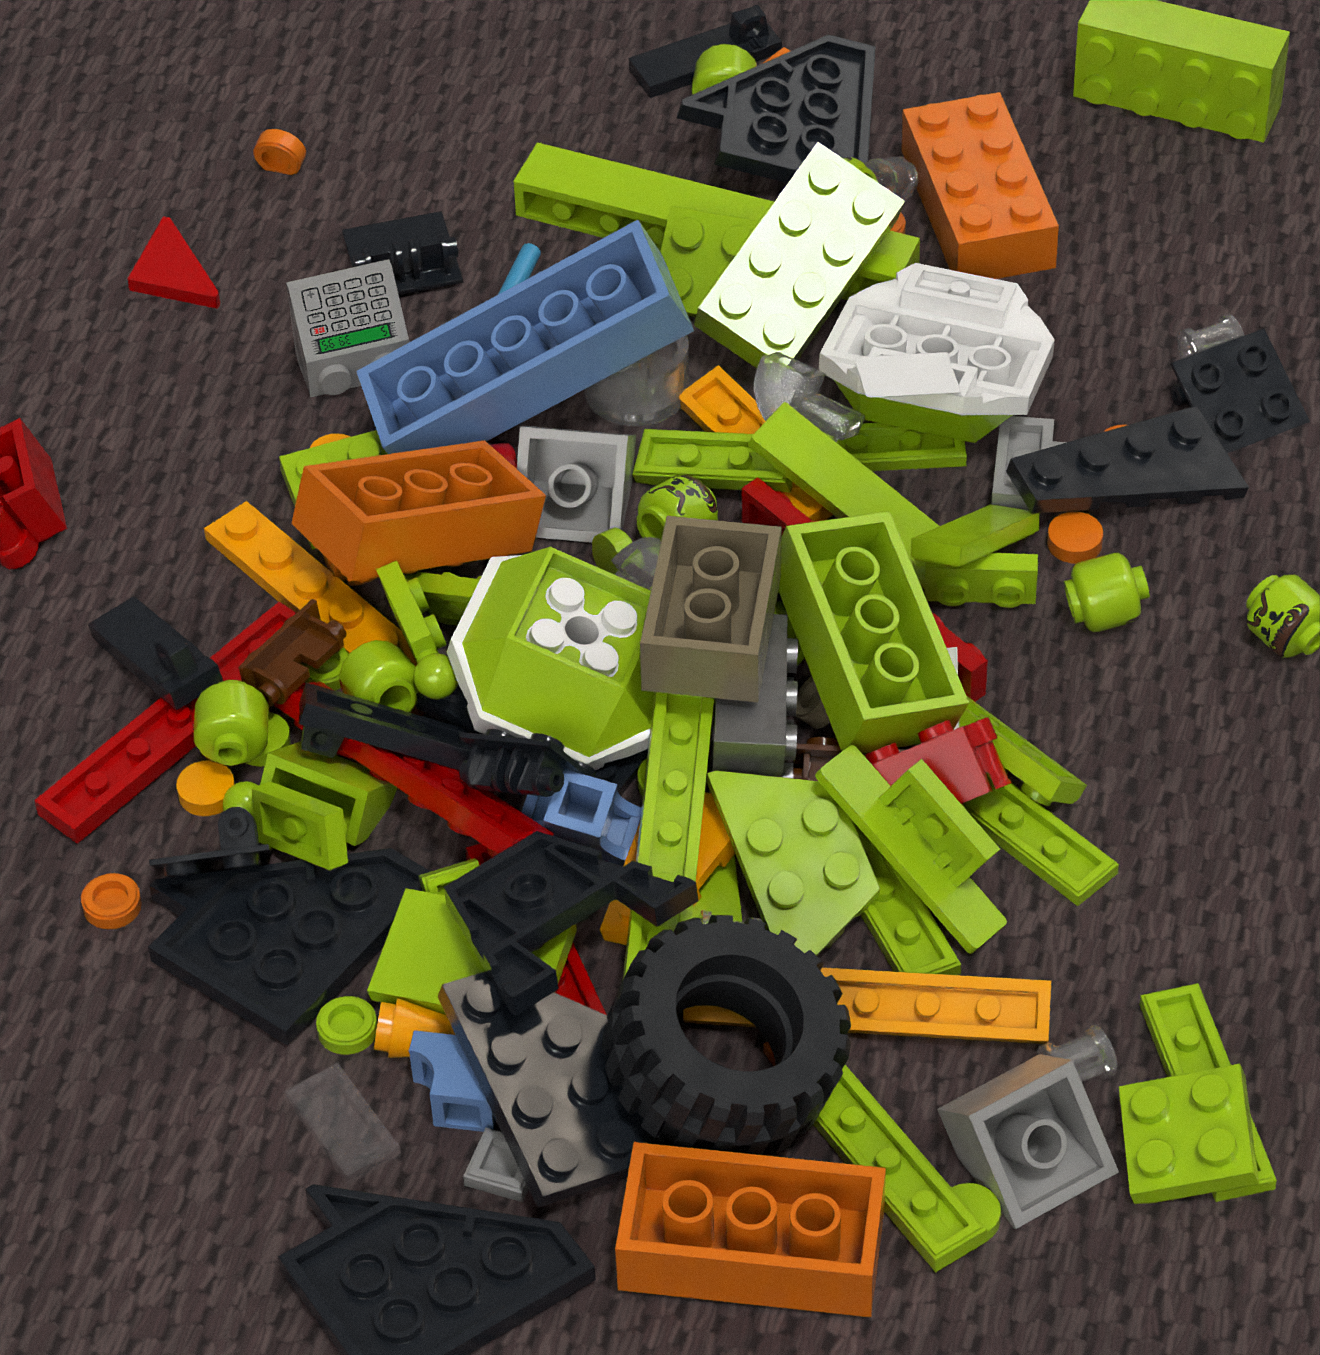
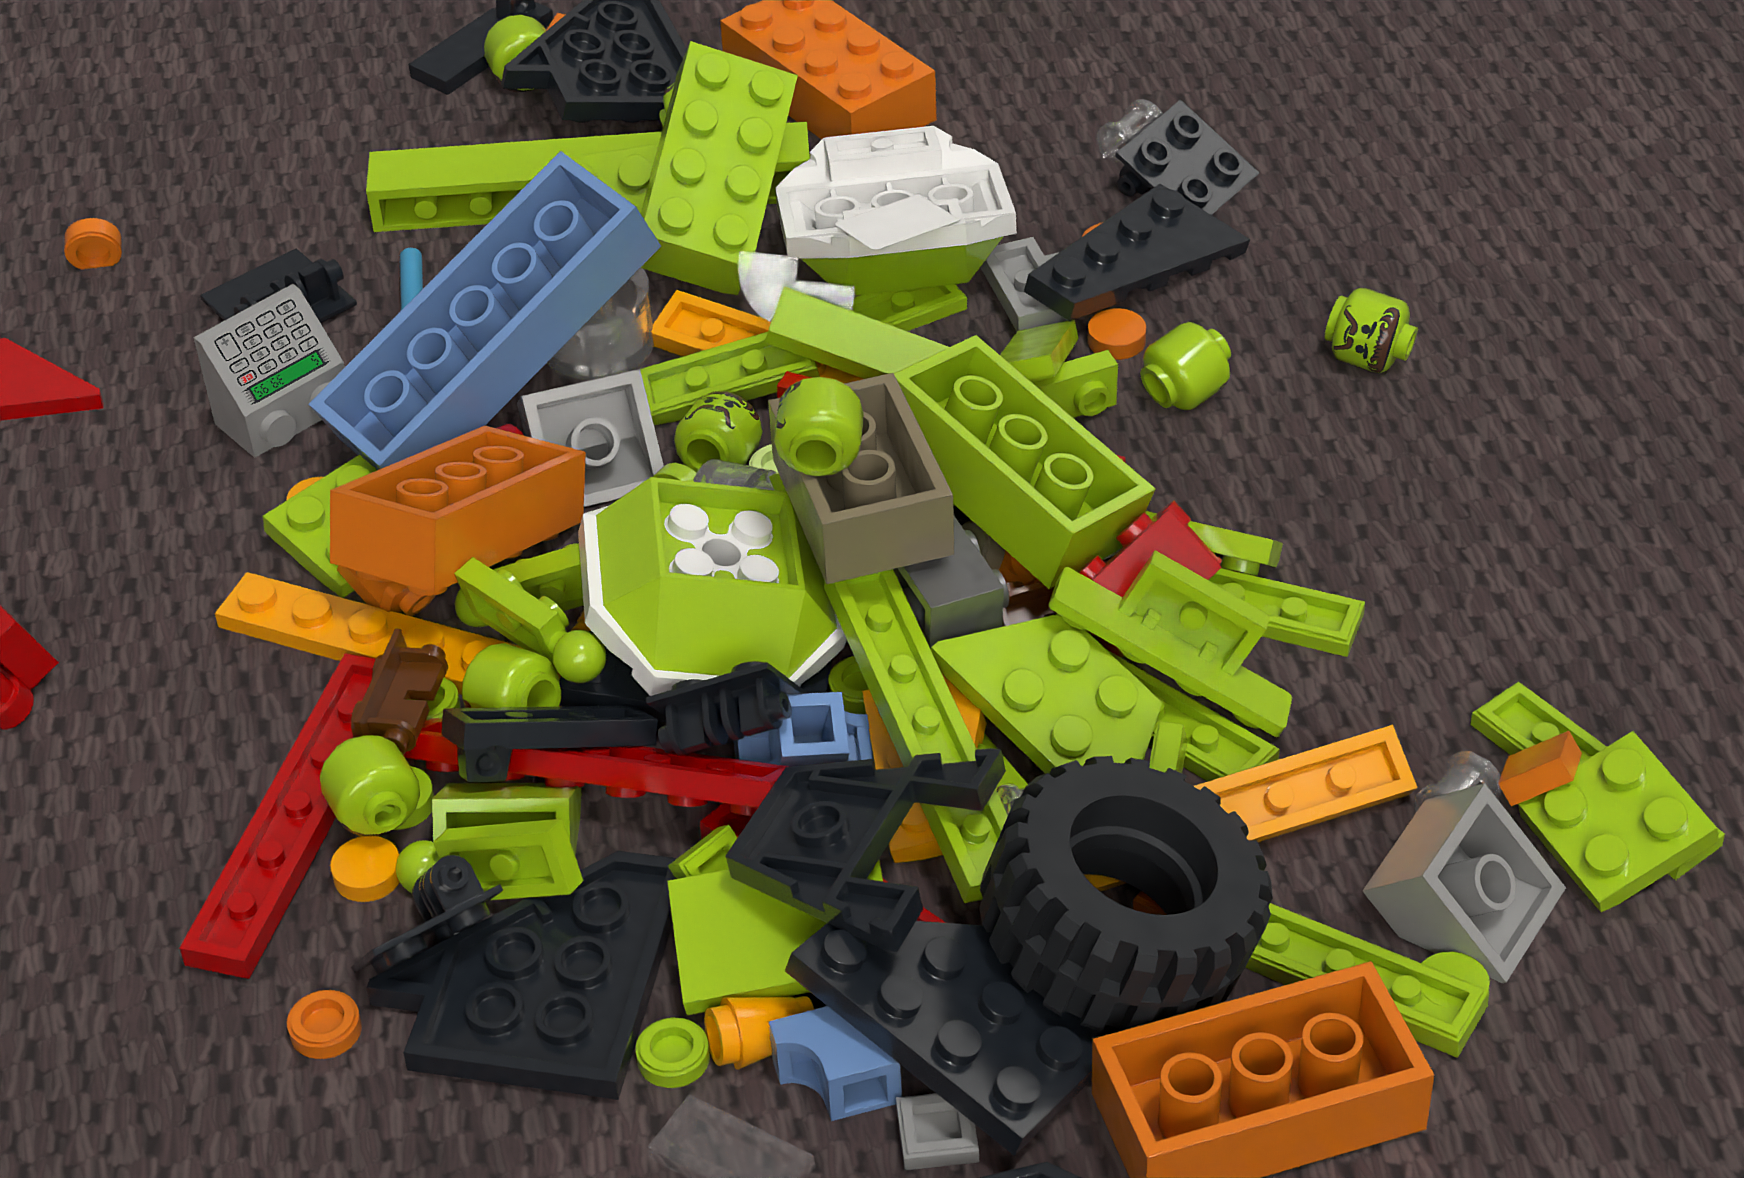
camera: 25 degrees left, 5 degrees down
(155, 652) = (235, 749): black hinge -> none
(678, 558) = (818, 426): none -> lime head
(853, 940) = (1168, 747): none -> lime tile
(1151, 1064) = (1540, 768): none -> orange tile

